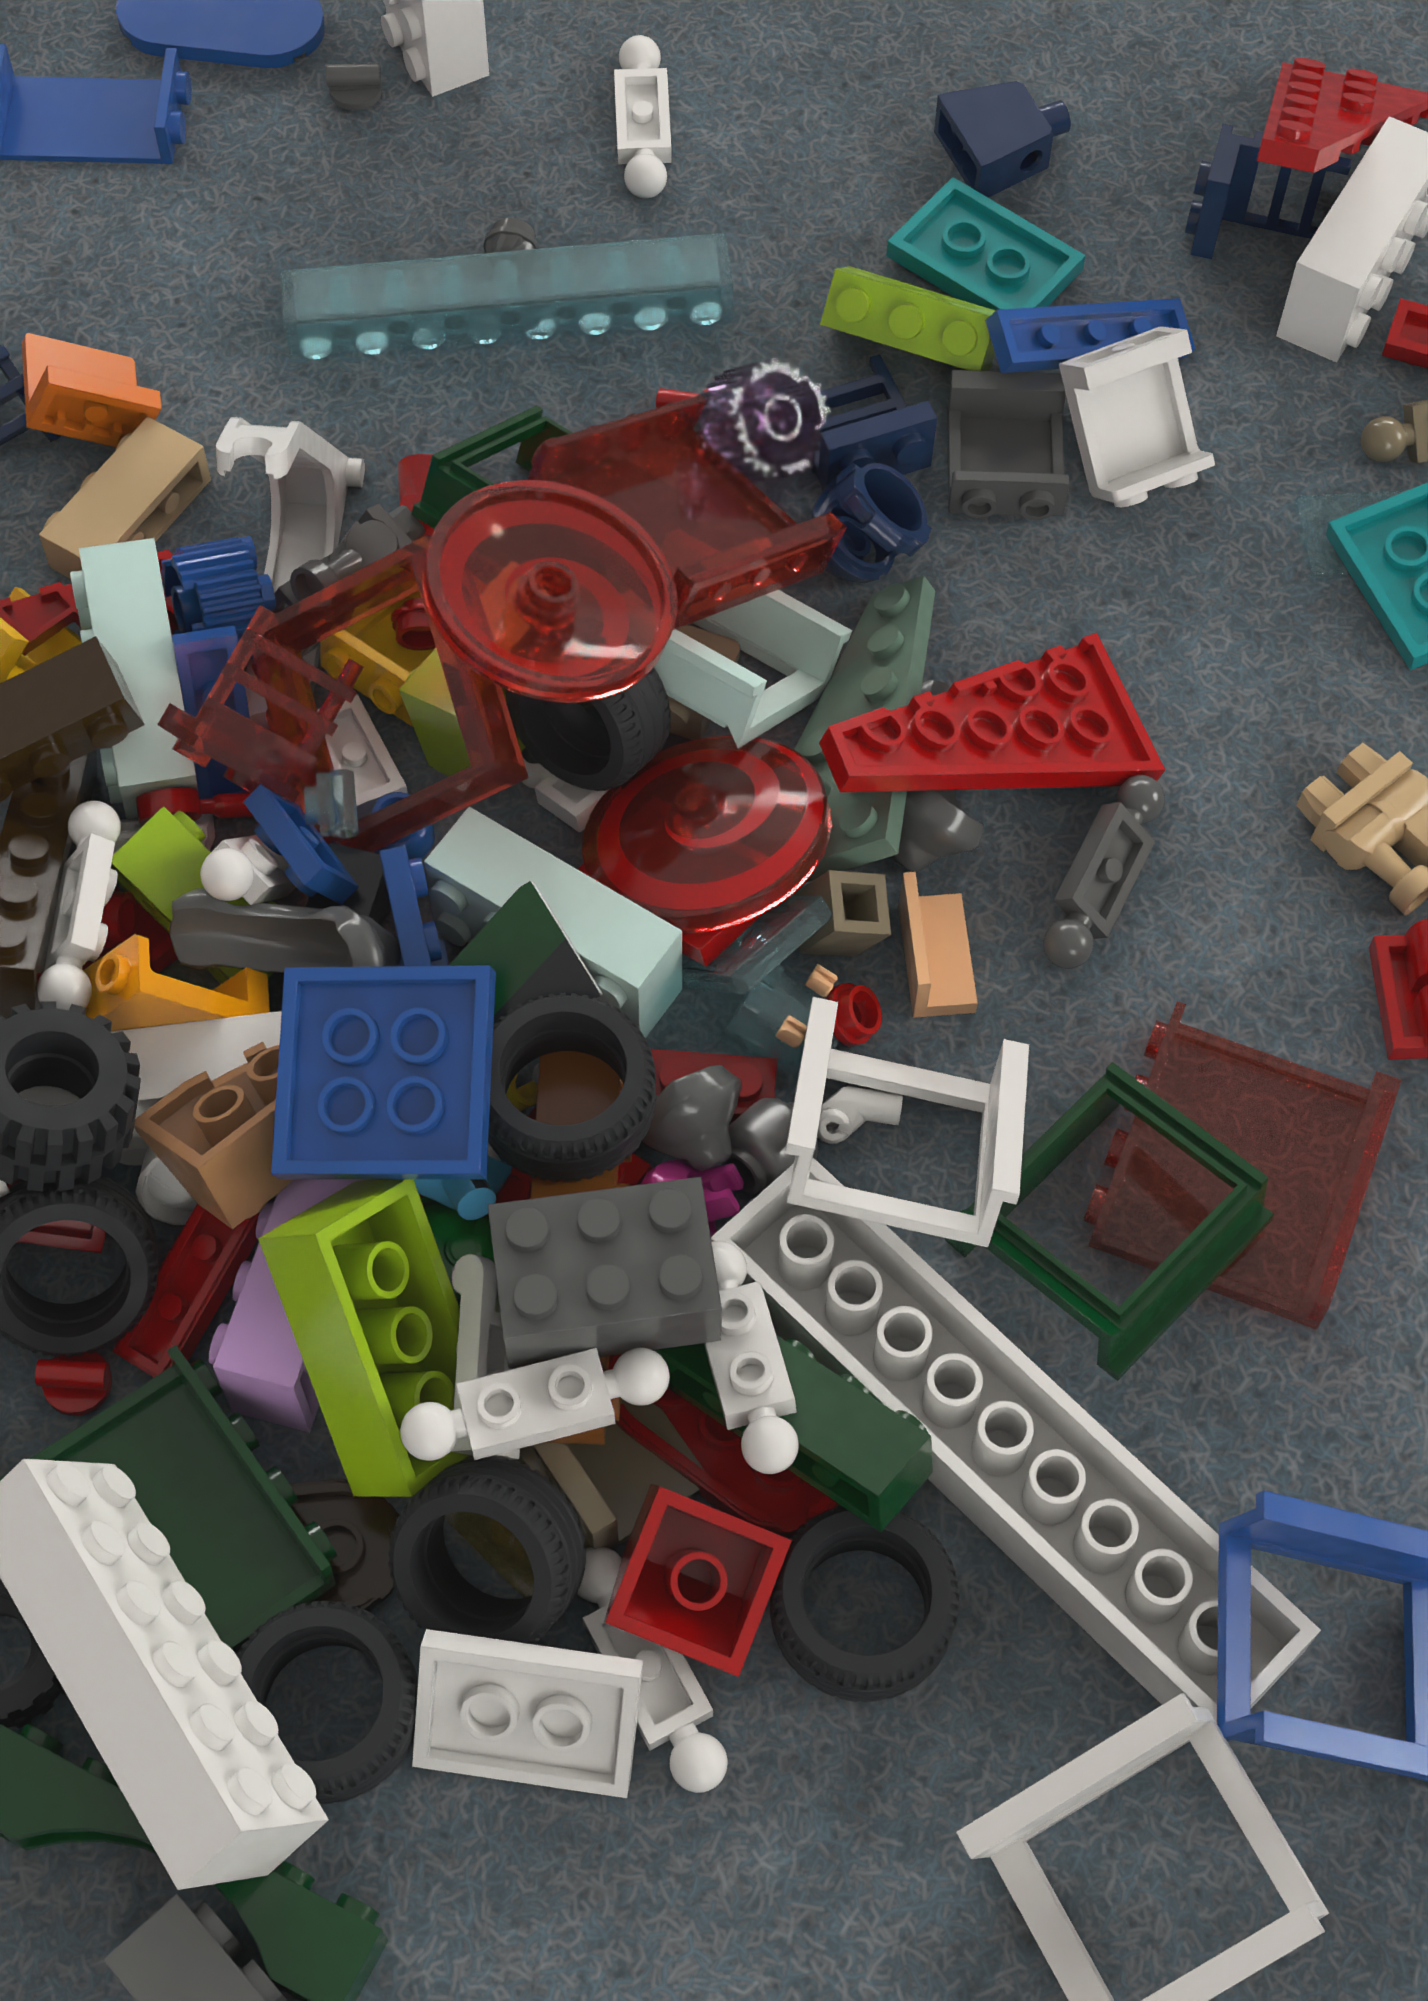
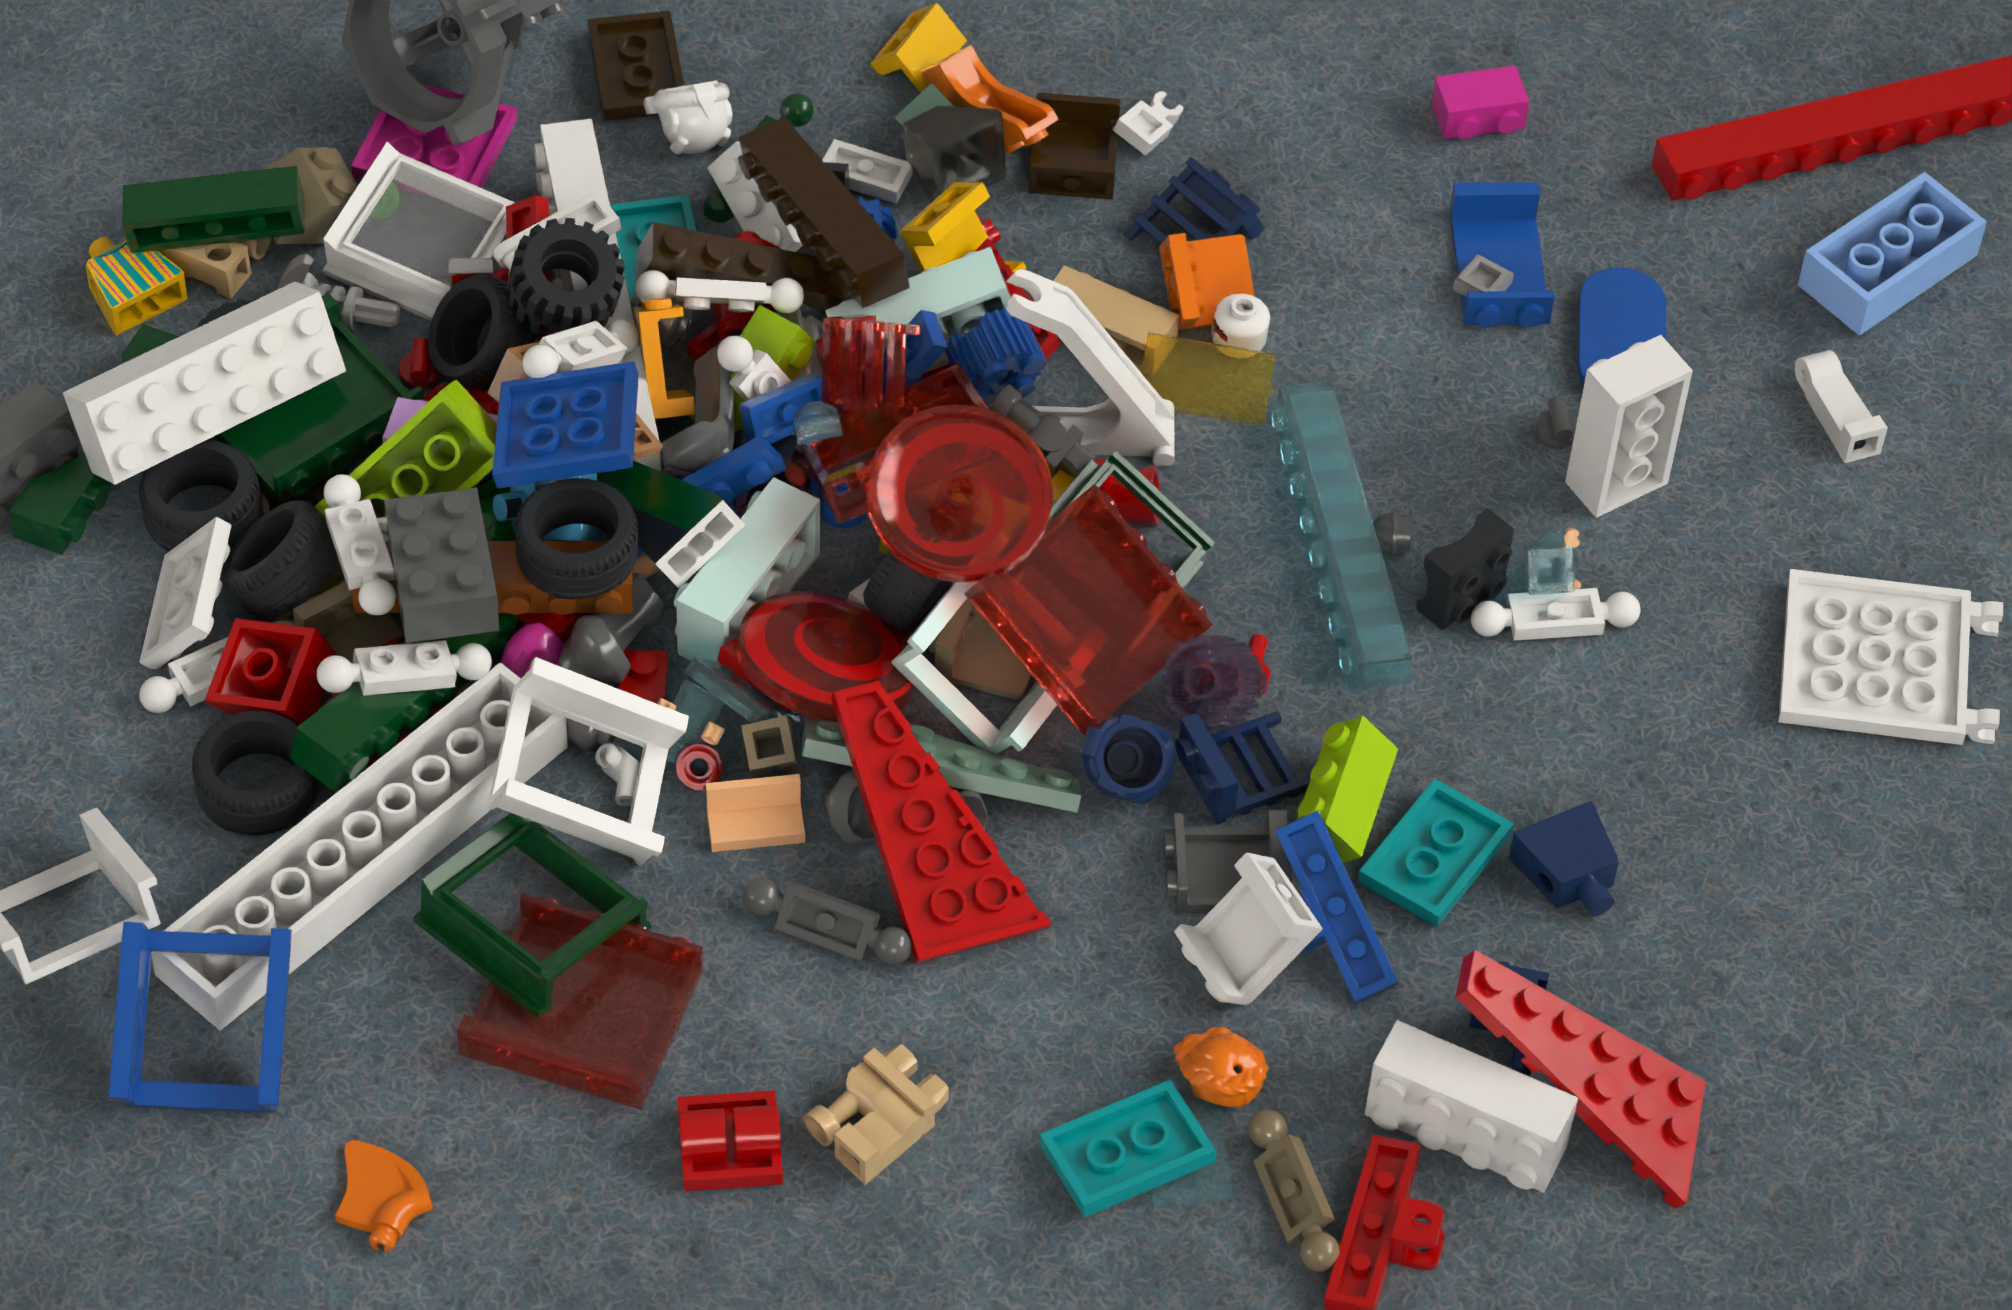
camera: 85 degrees right, 10 degrees down
(116, 130) = (1482, 276): none -> light grey tile
(164, 359) = (1241, 322): none -> white head
(201, 1078) = (581, 348): none -> white plate
(254, 382) = (1210, 377): none -> clear yellow piece
(587, 102) = (1549, 563): none -> clear light blue piece
(598, 167) = (1467, 571): none -> black brick
(1301, 473) = (1210, 1062): none -> orange hair

